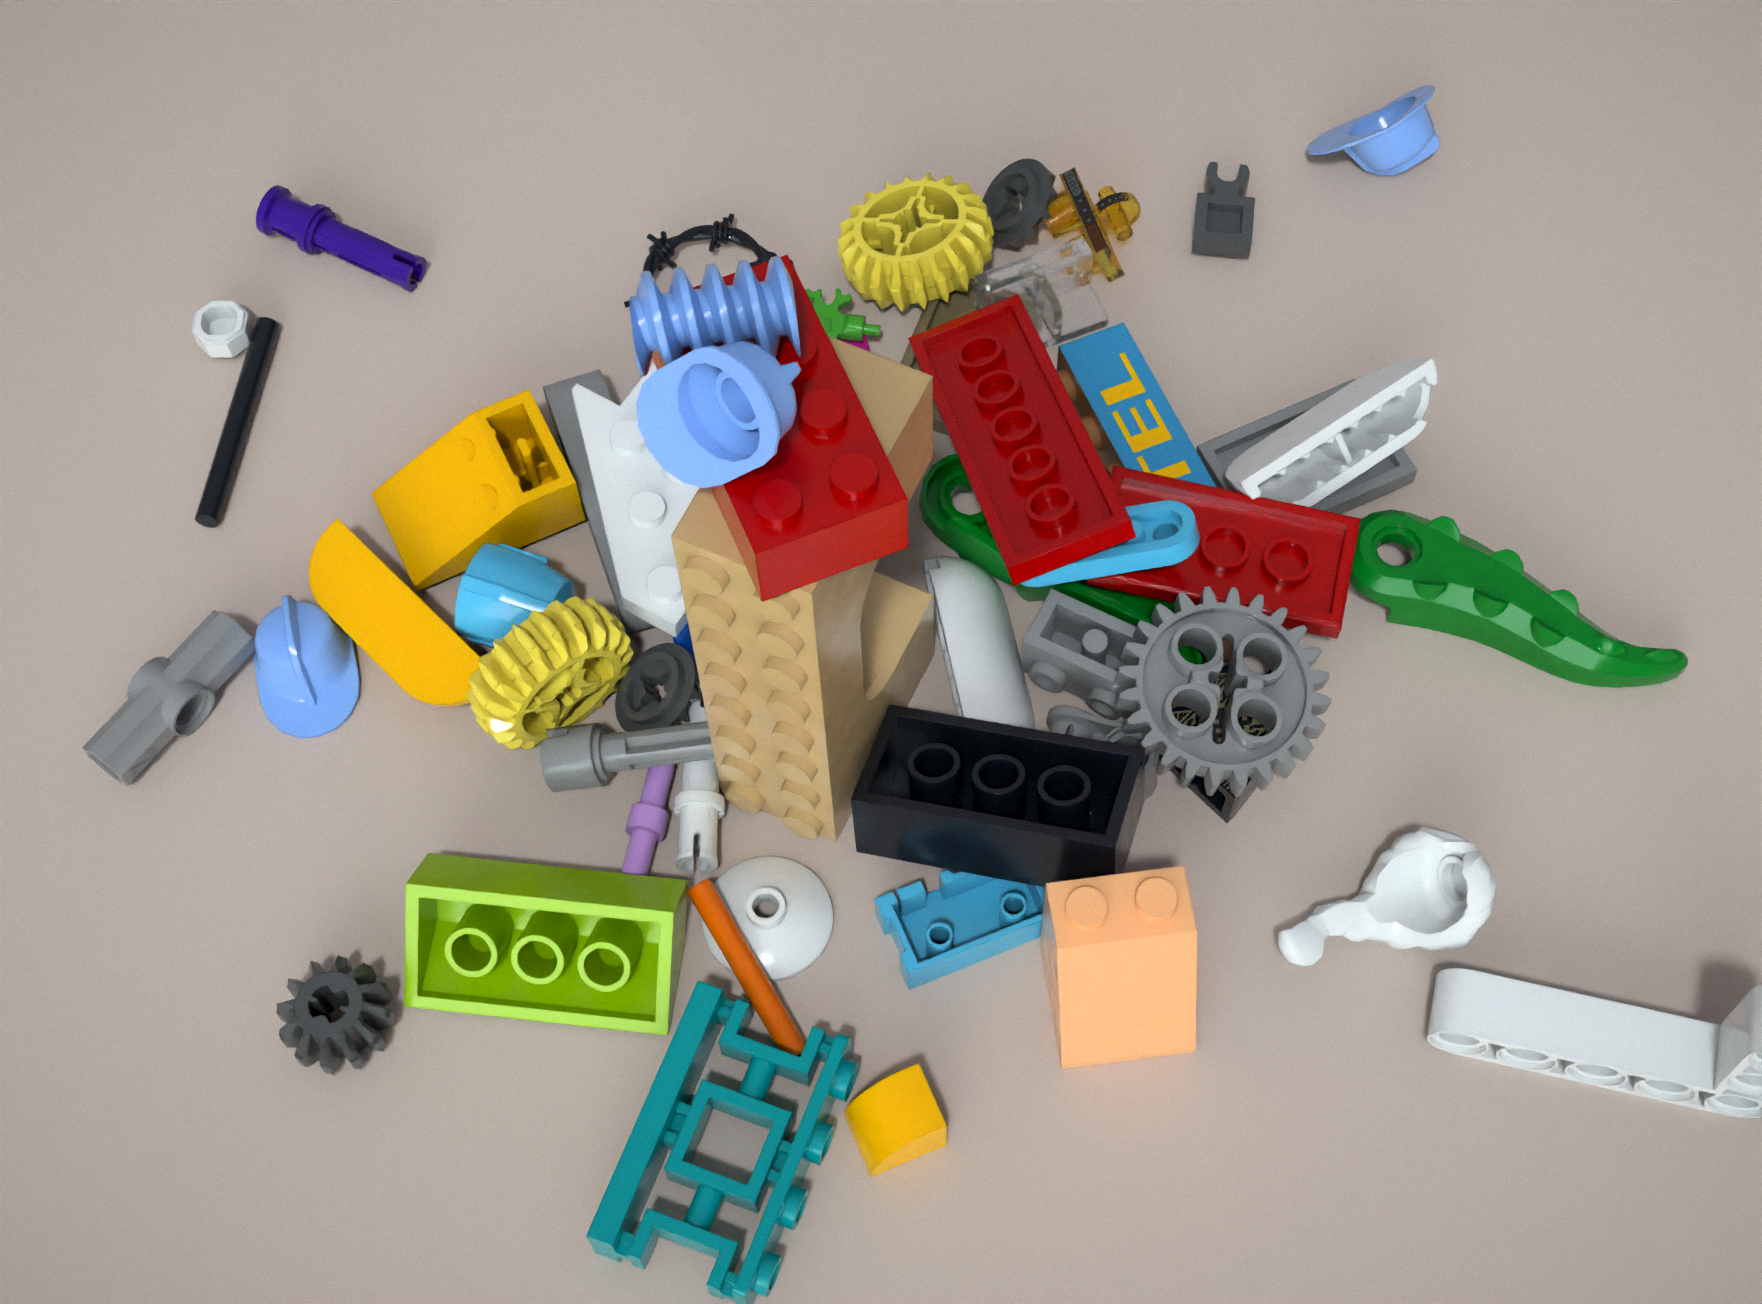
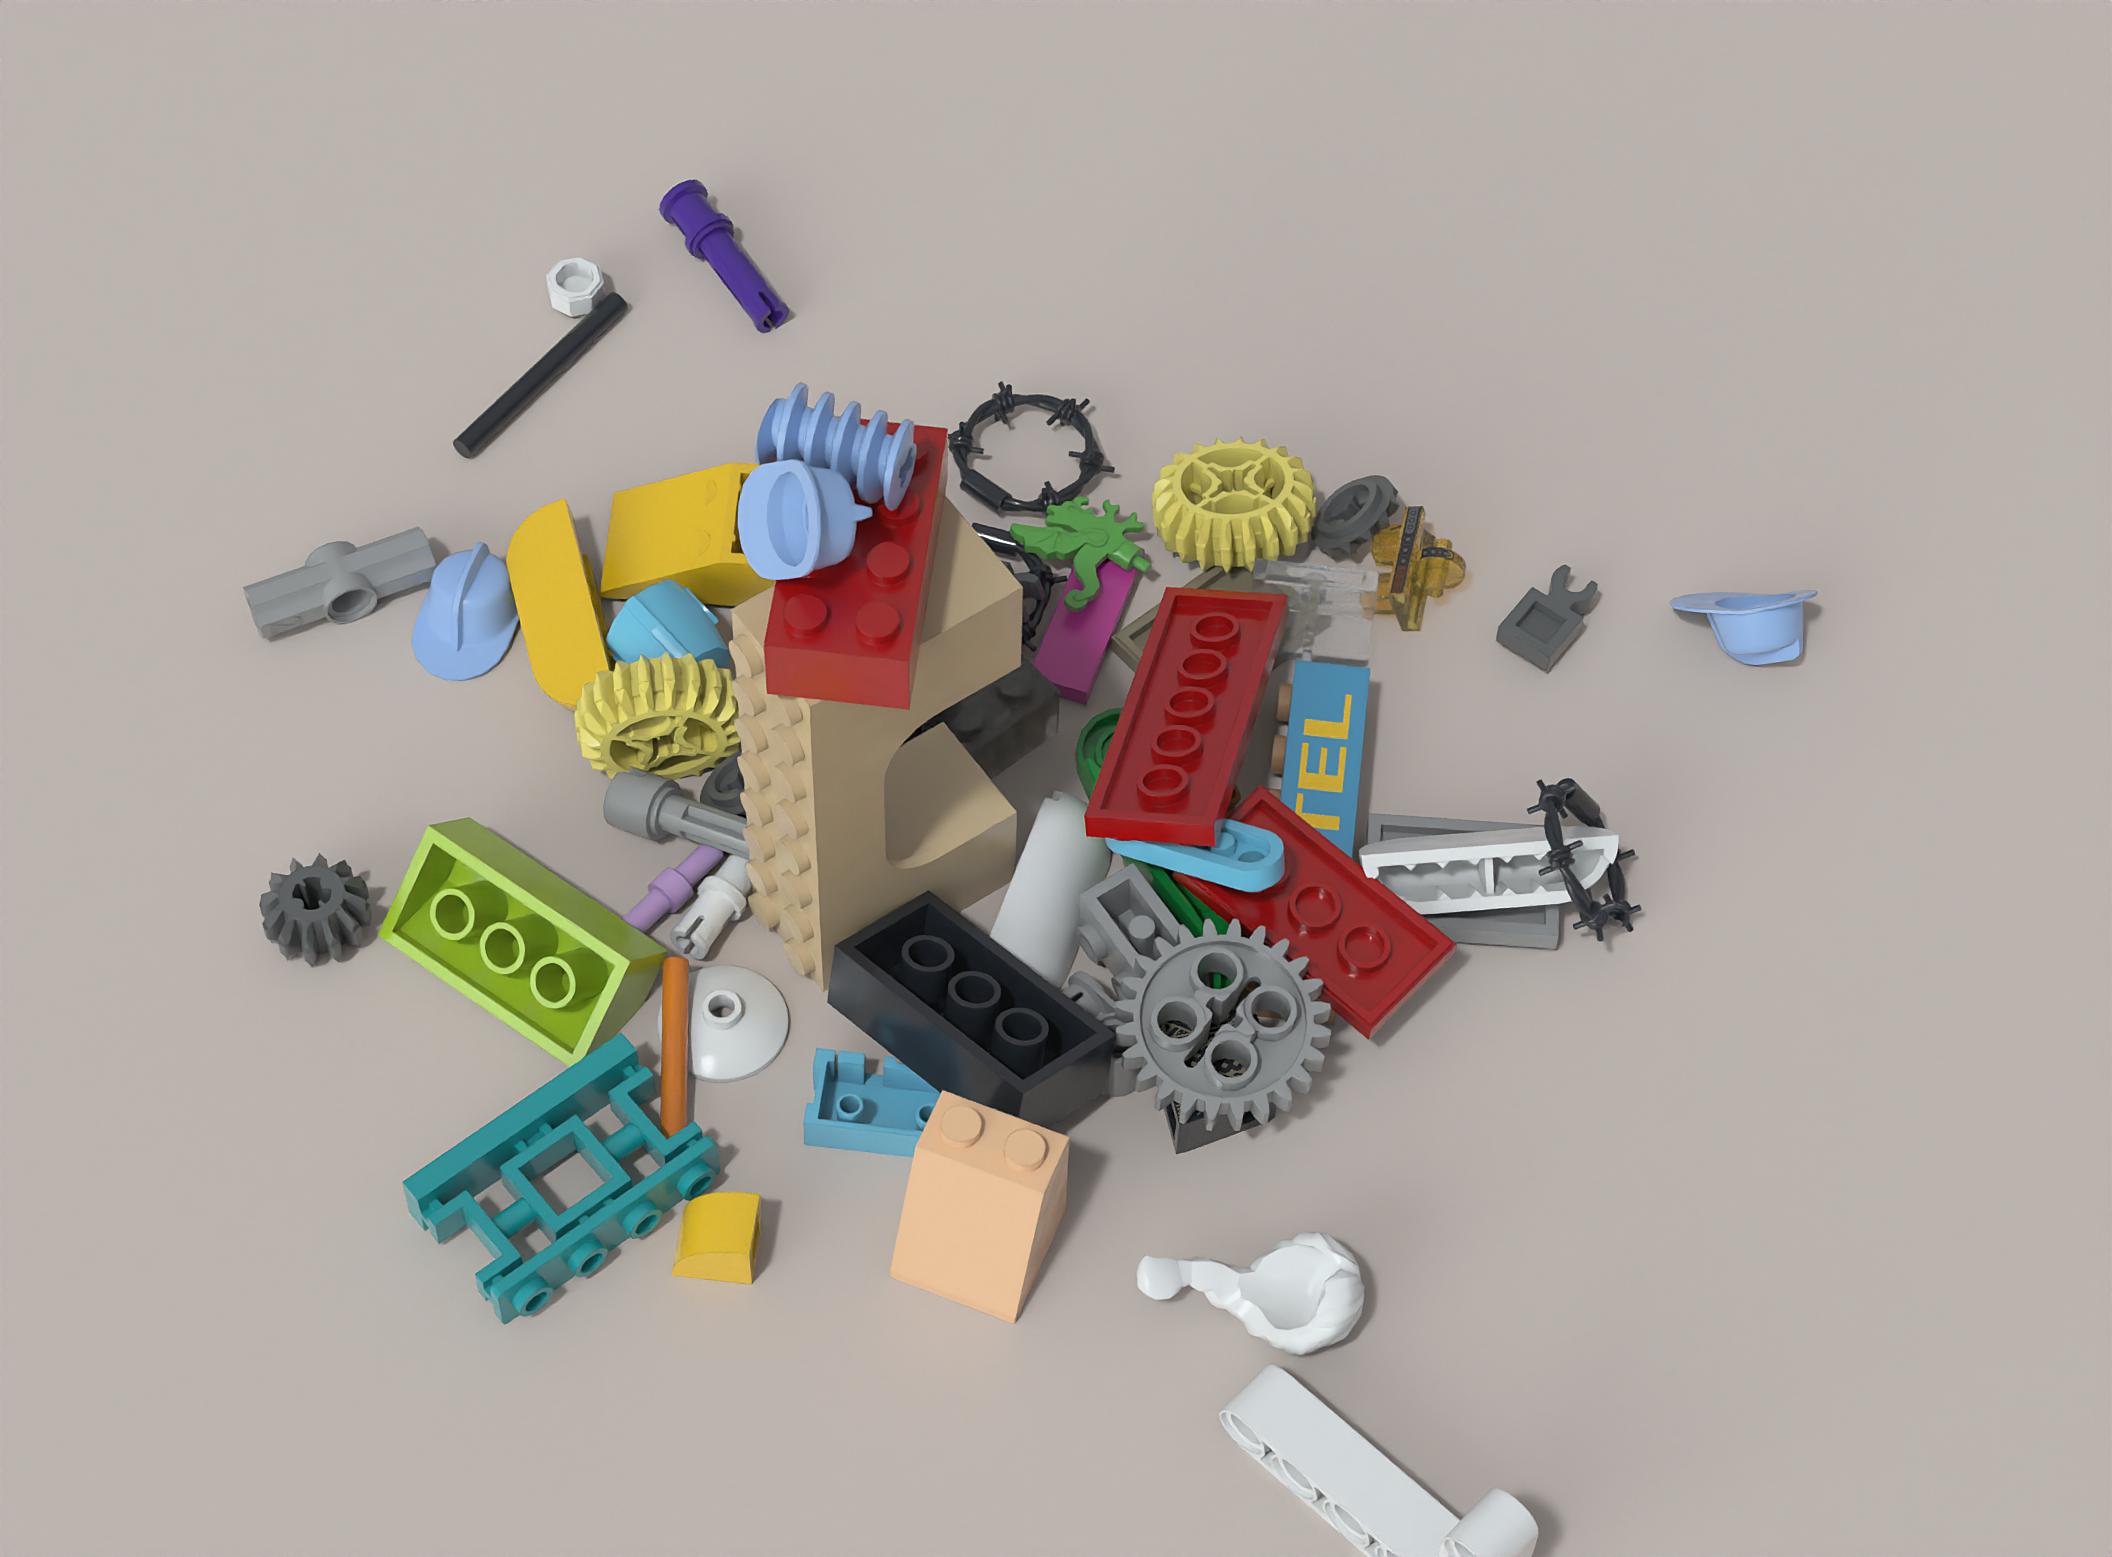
camera: 25 degrees right, 5 degrees down
(1441, 426) = (1586, 810): none -> black piece
(1490, 599) = (1541, 1077): green animal -> none

